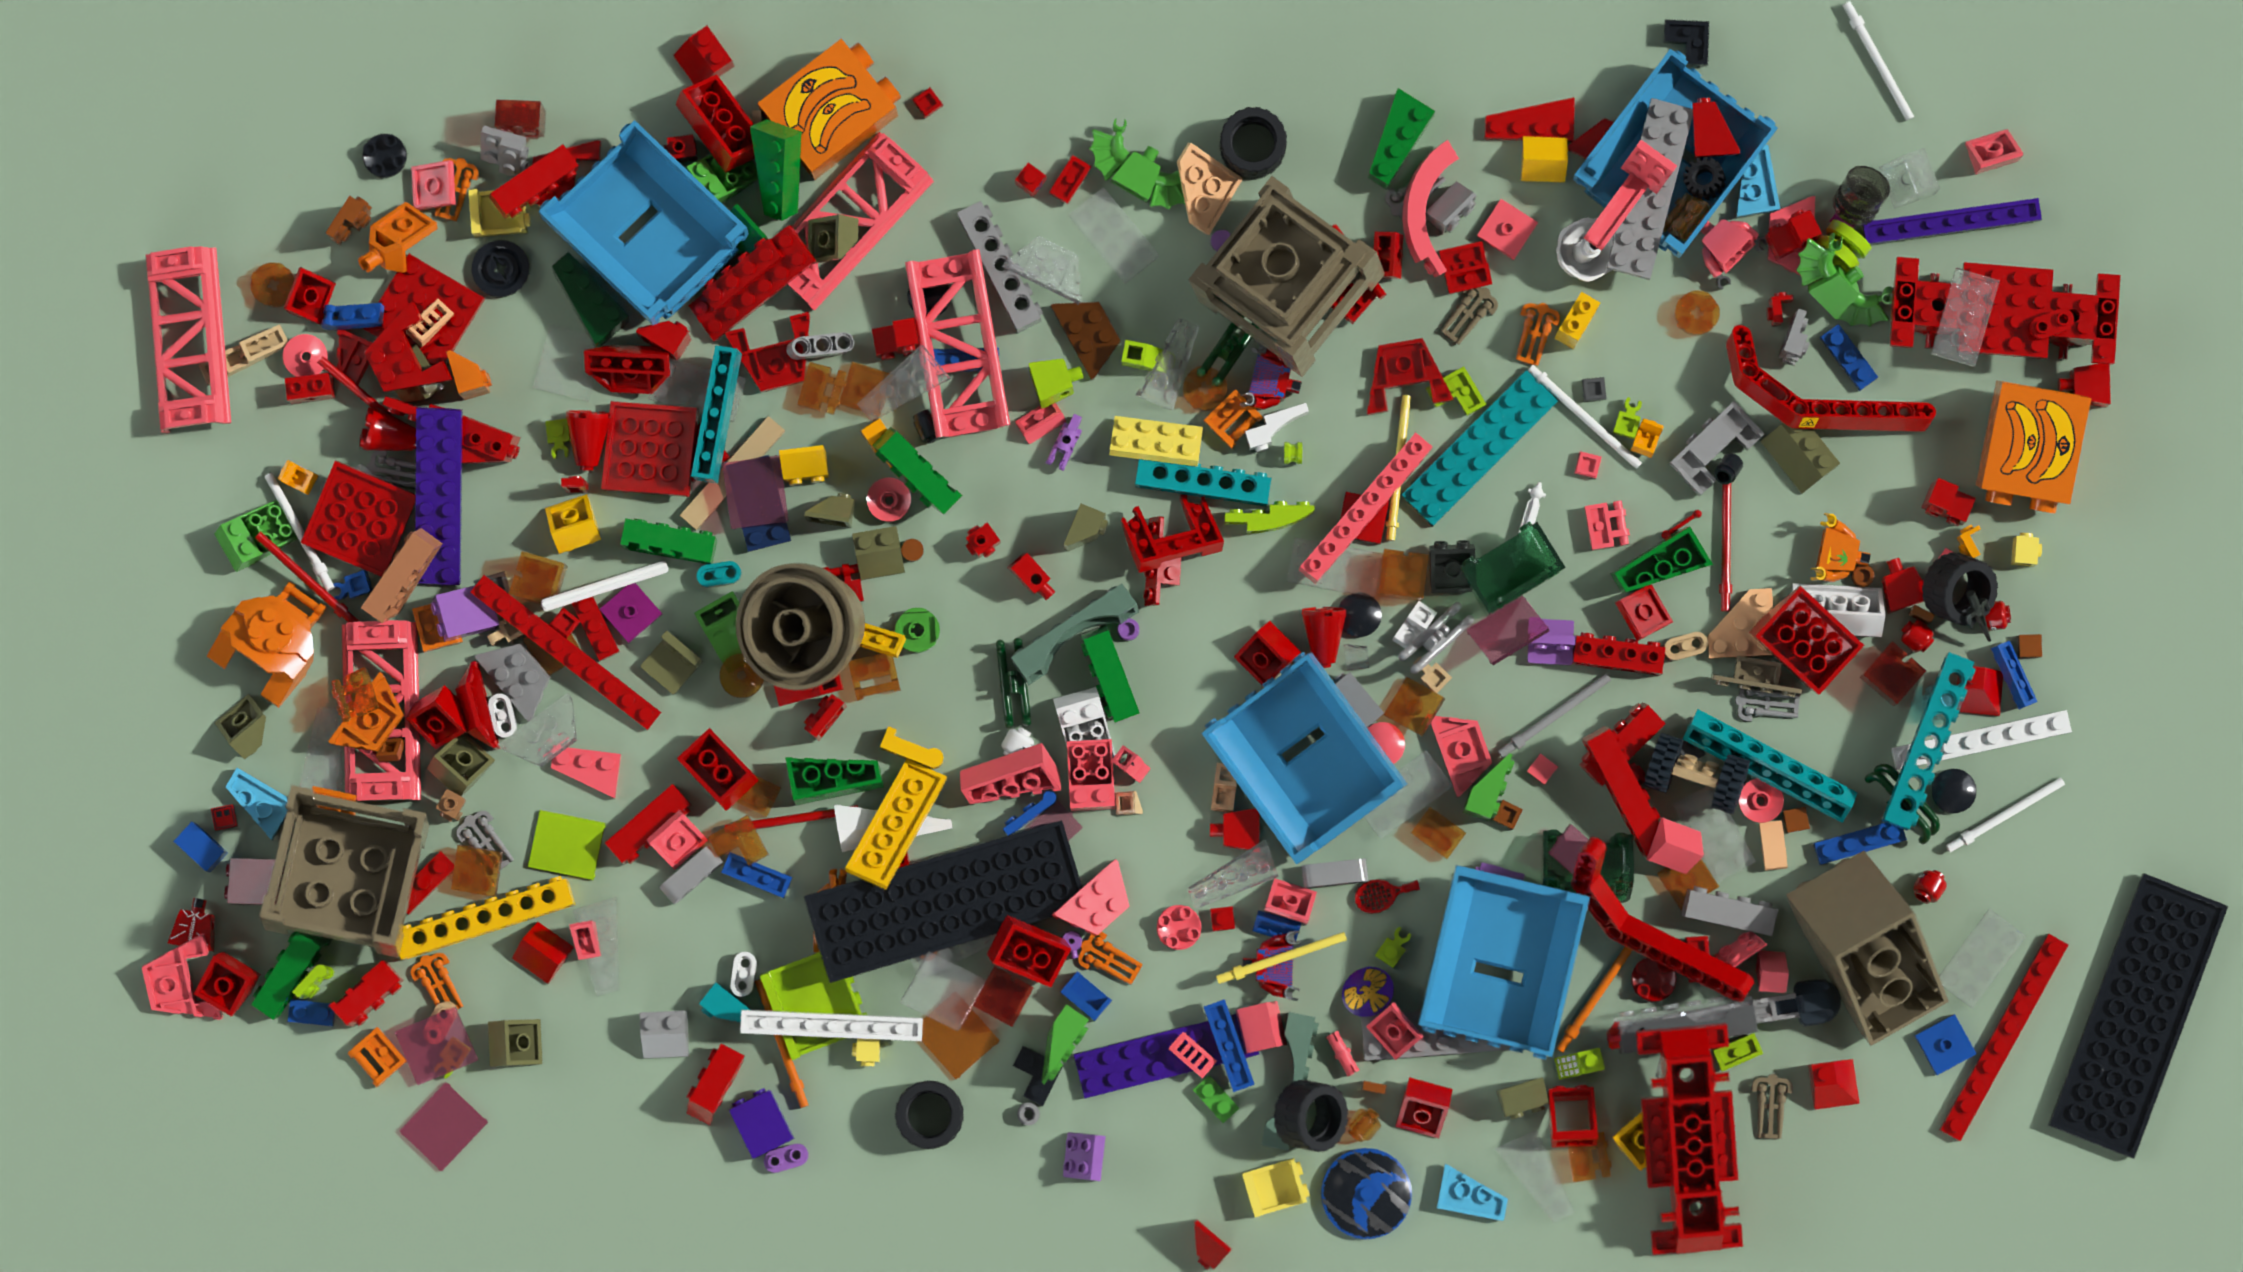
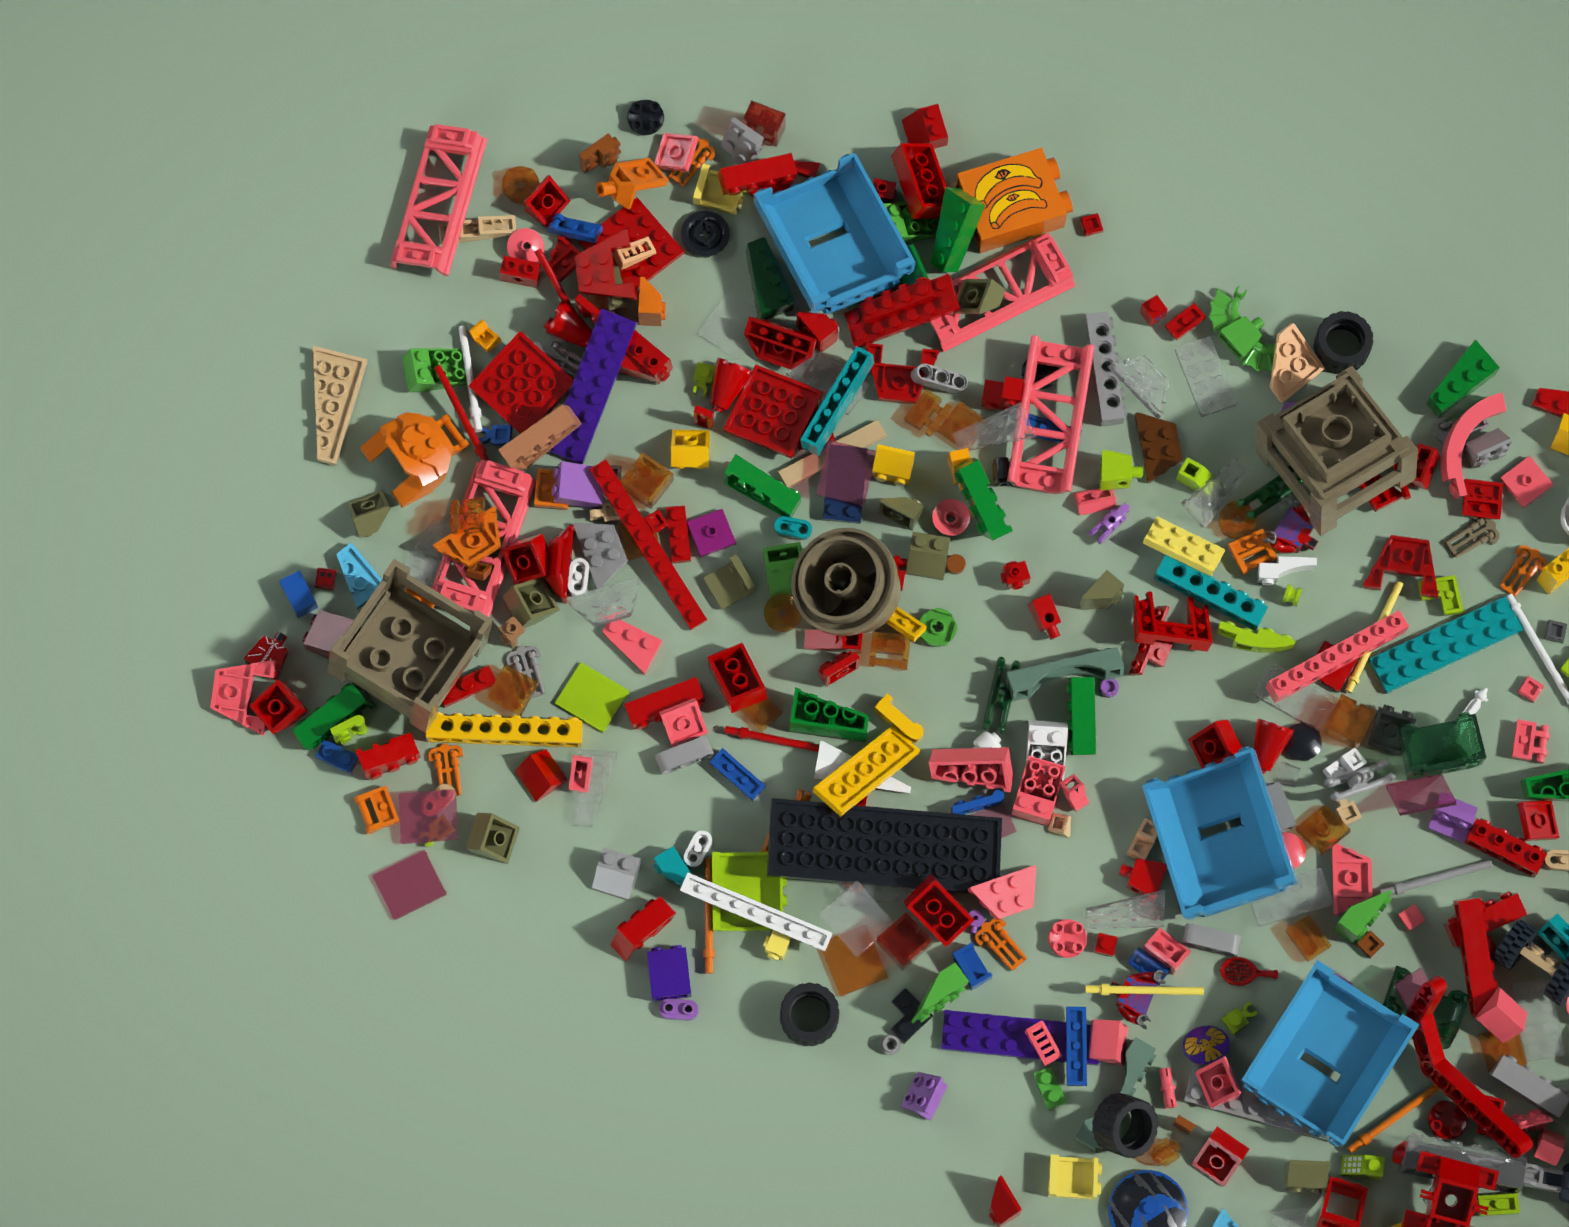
camera: 15 degrees right, 10 degrees down
(156, 602) = (336, 390): none -> tan wing
(604, 586) = (698, 503): white axle -> none
(741, 835) = (734, 736): clear orange plate -> none

